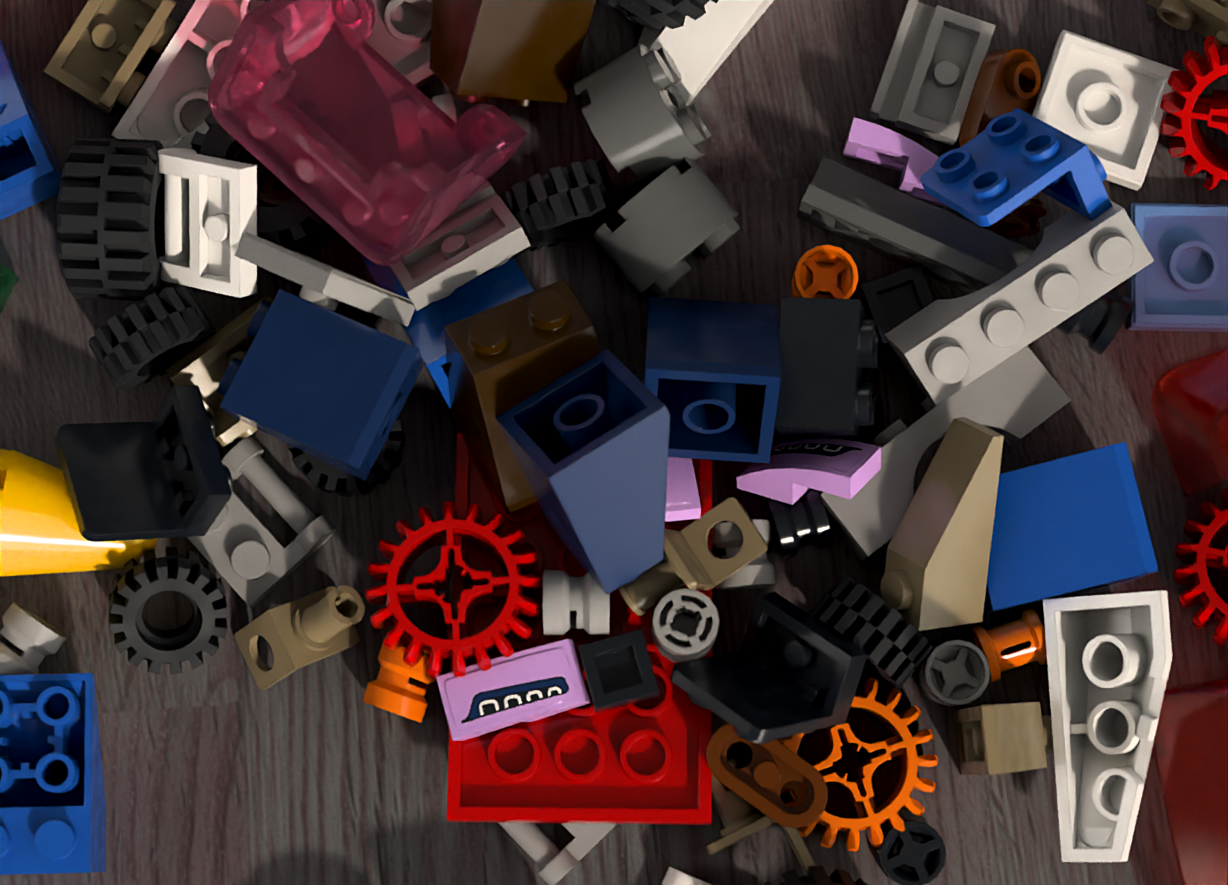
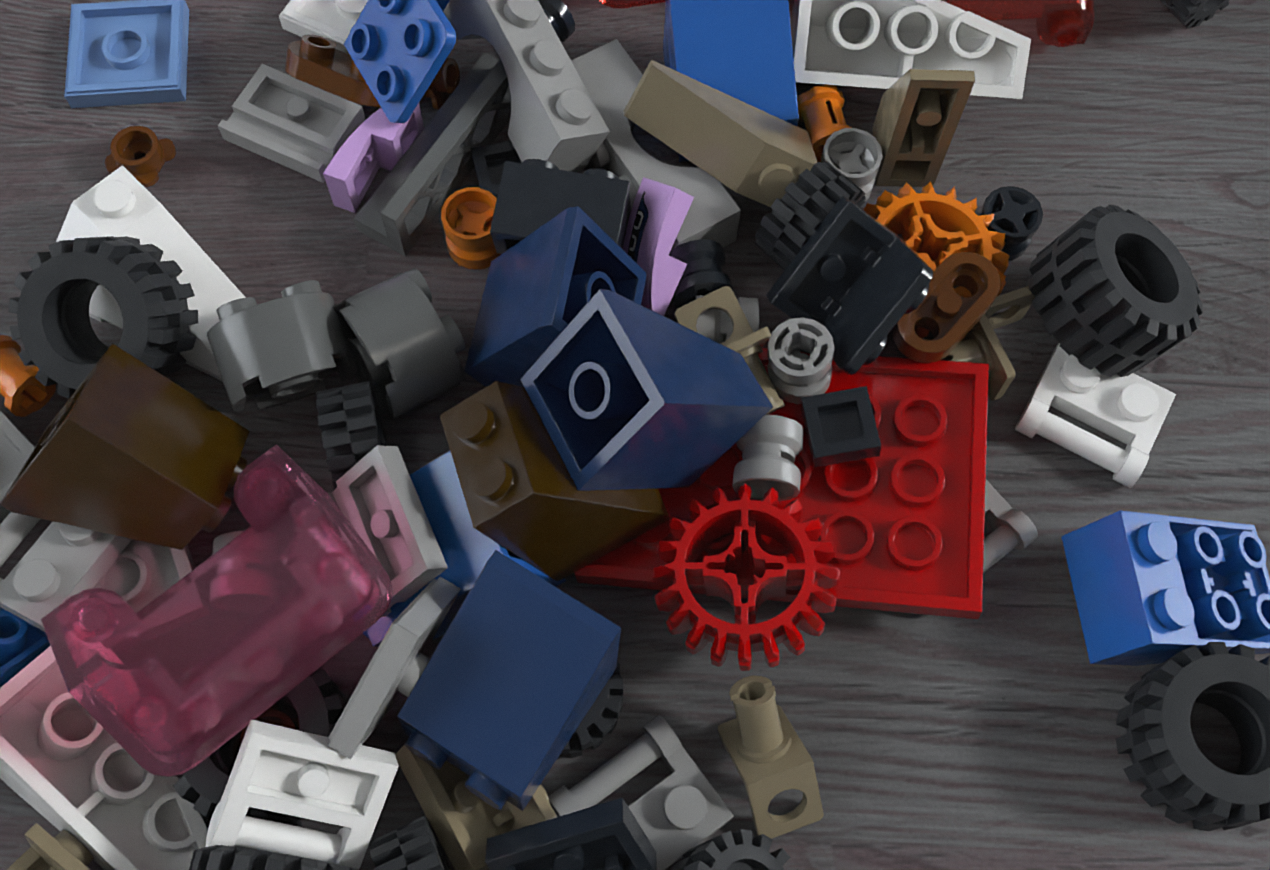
camera: 85 degrees left, 15 degrees down
(399, 686) = (831, 661): orange wheel -> none
(514, 690) = (856, 520): lavender slope -> none

